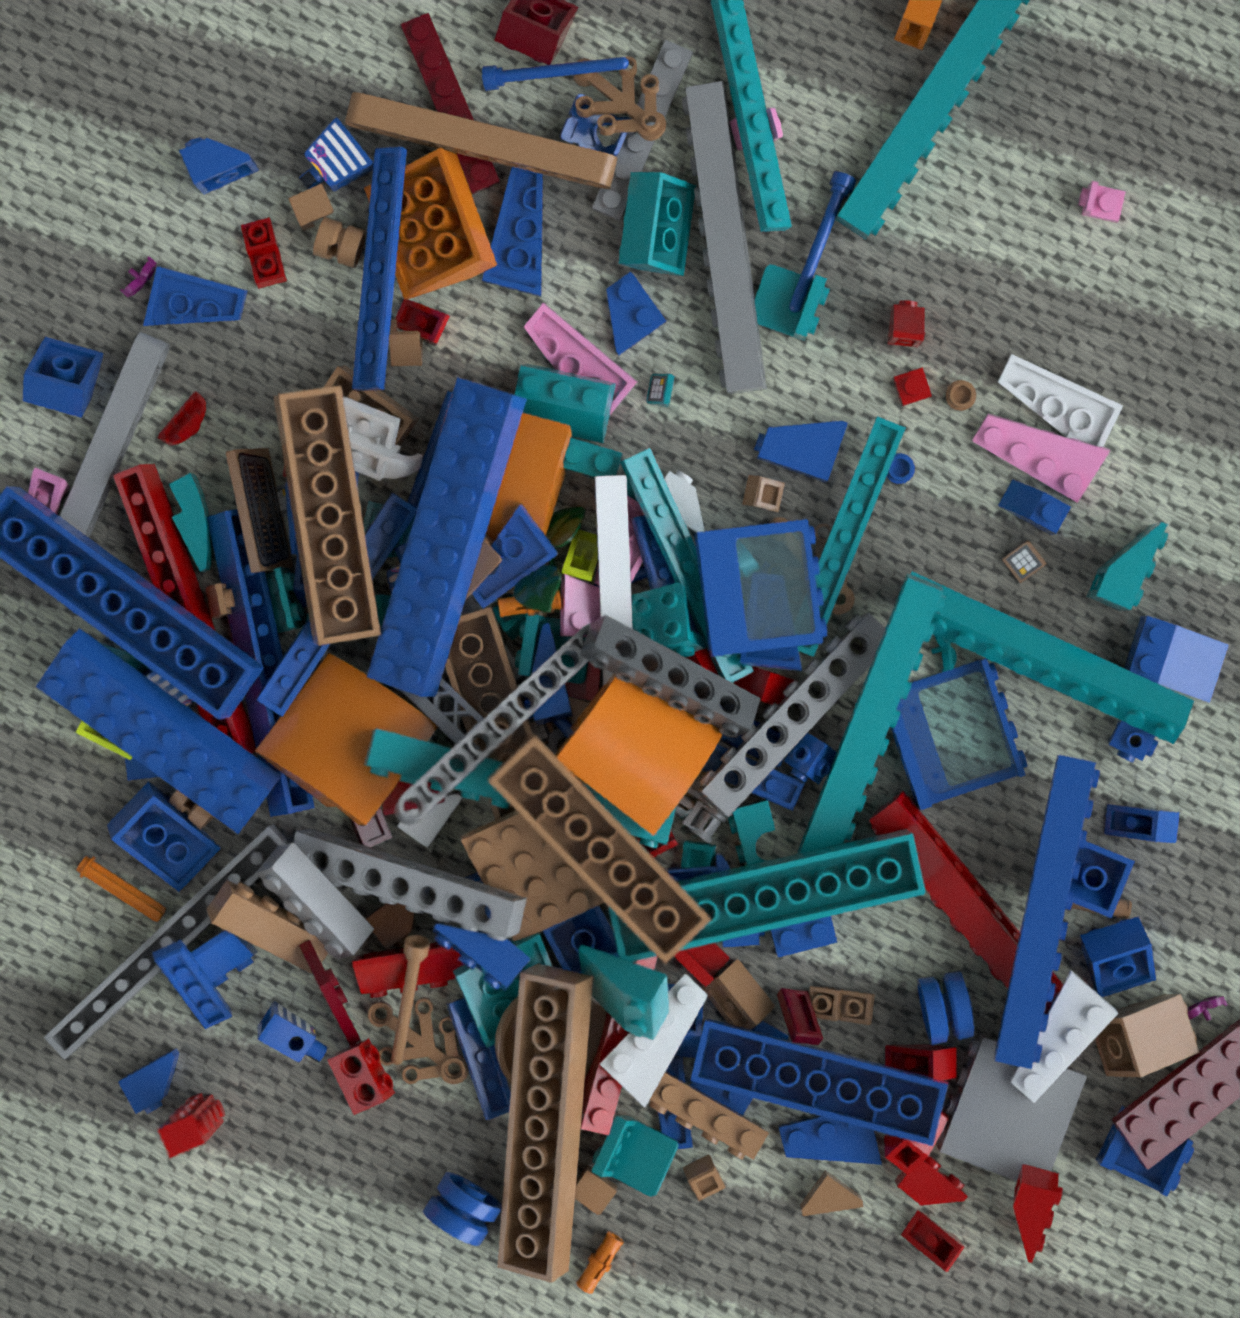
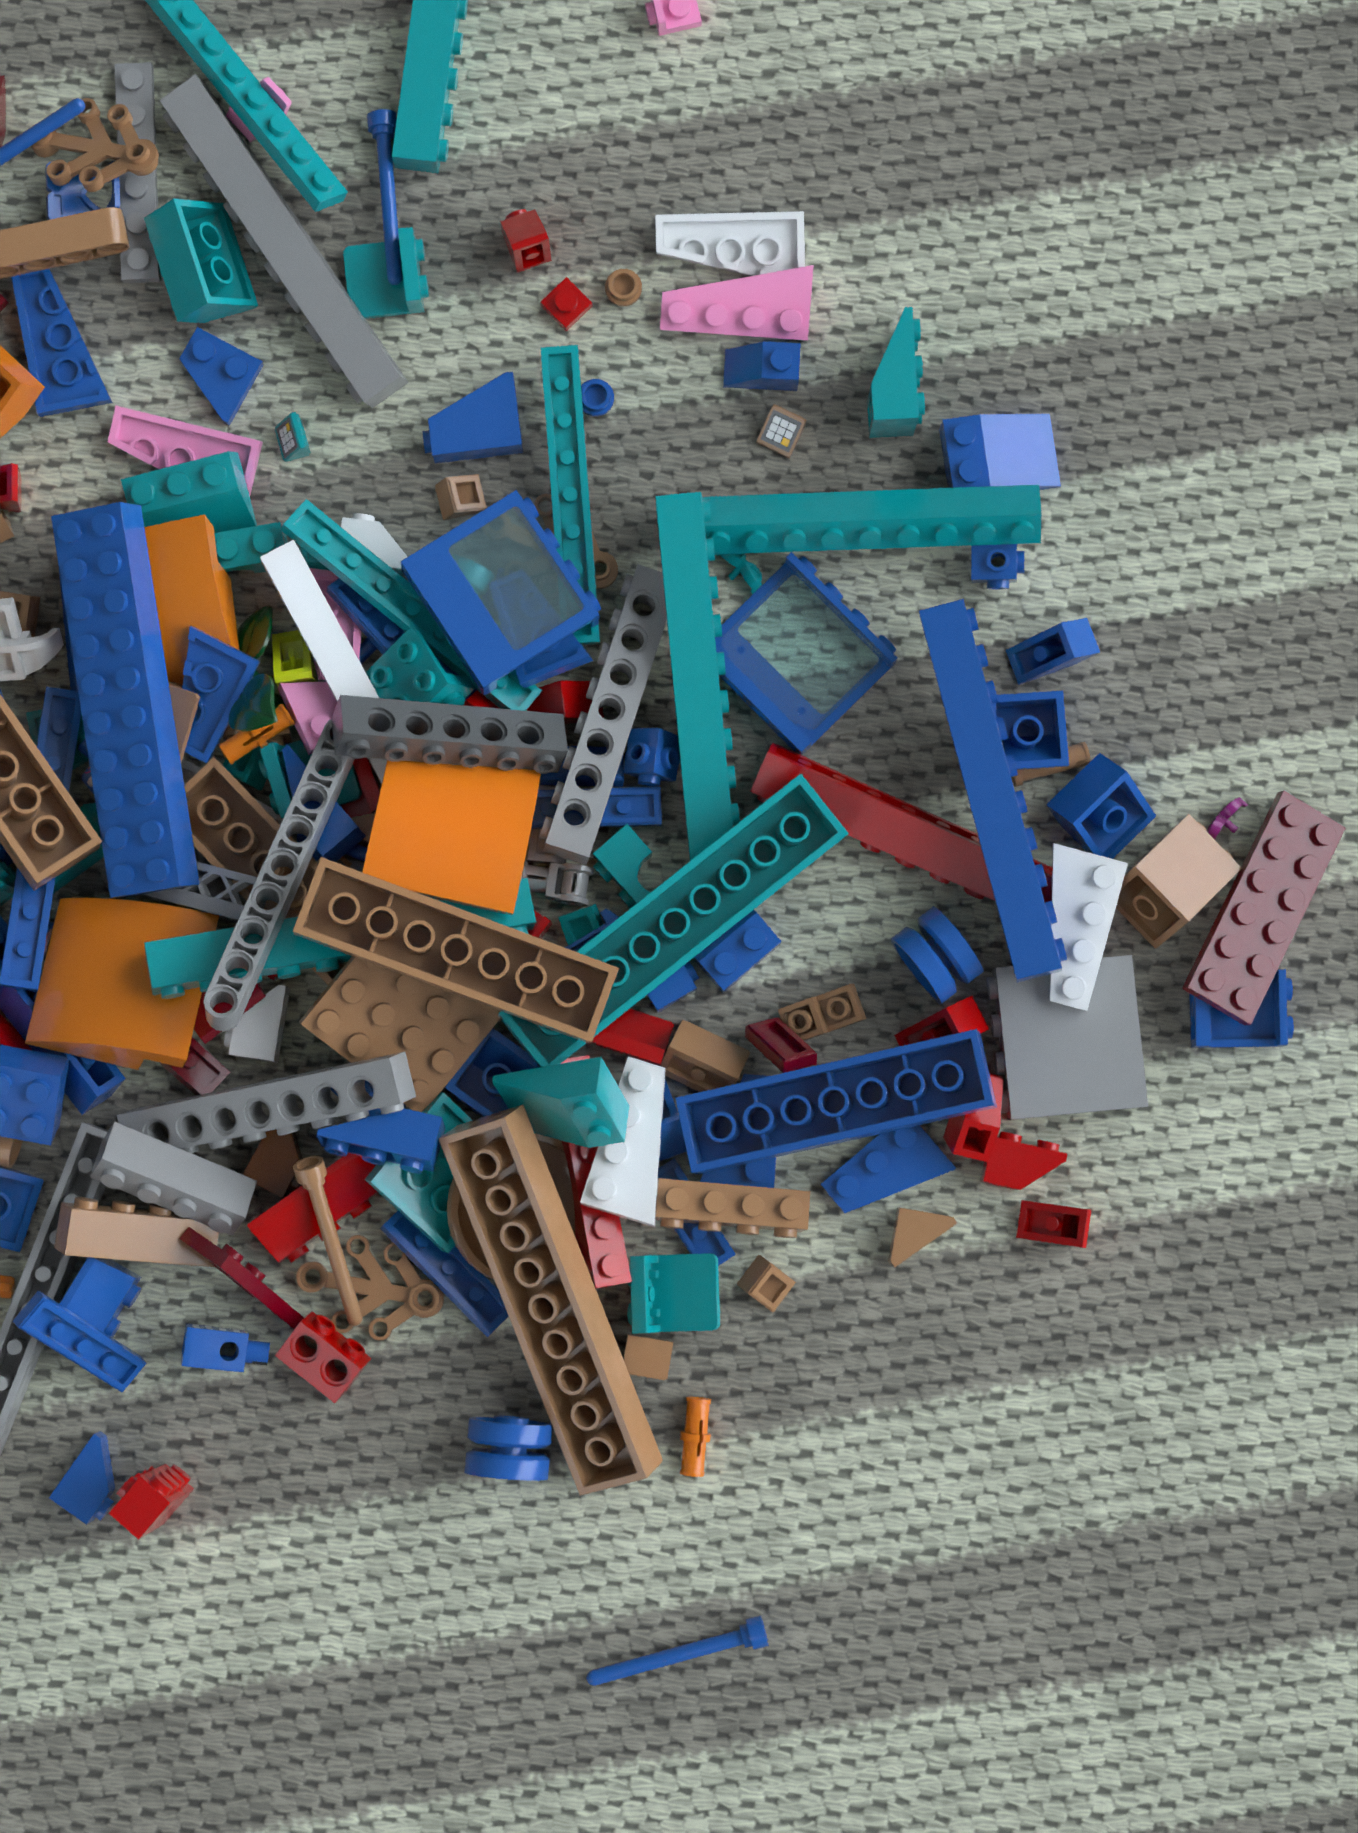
camera: 25 degrees left, 5 degrees down
(1033, 1202) = (1141, 1122): red slope -> none

